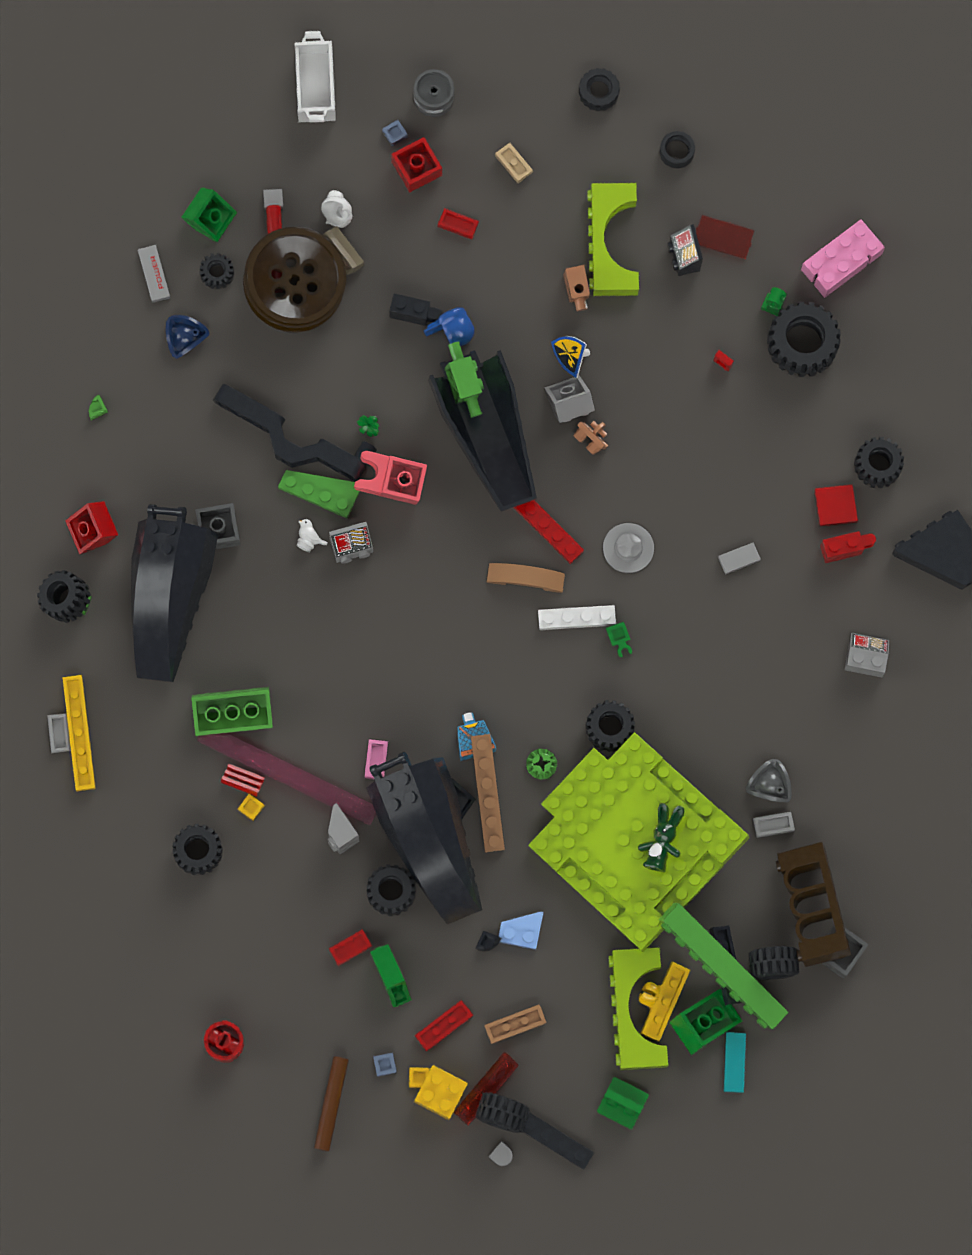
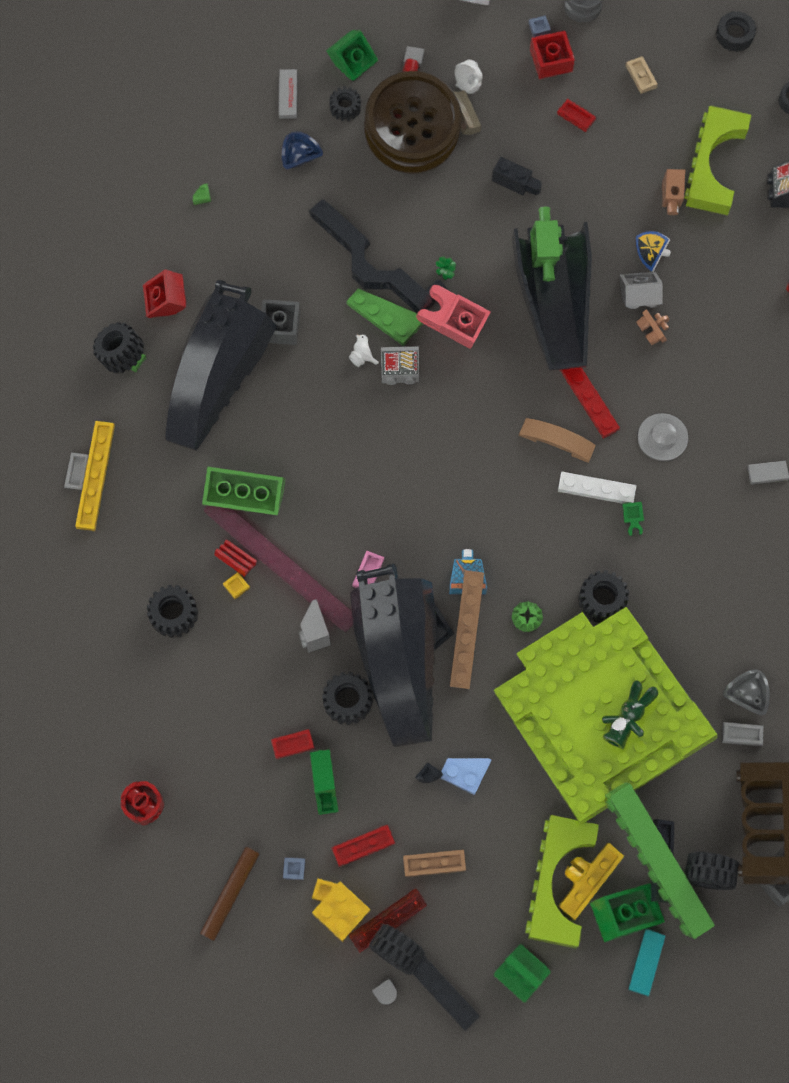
camera: 20 degrees right, 5 degrees down
(455, 325) = (547, 194): blue piece -> none

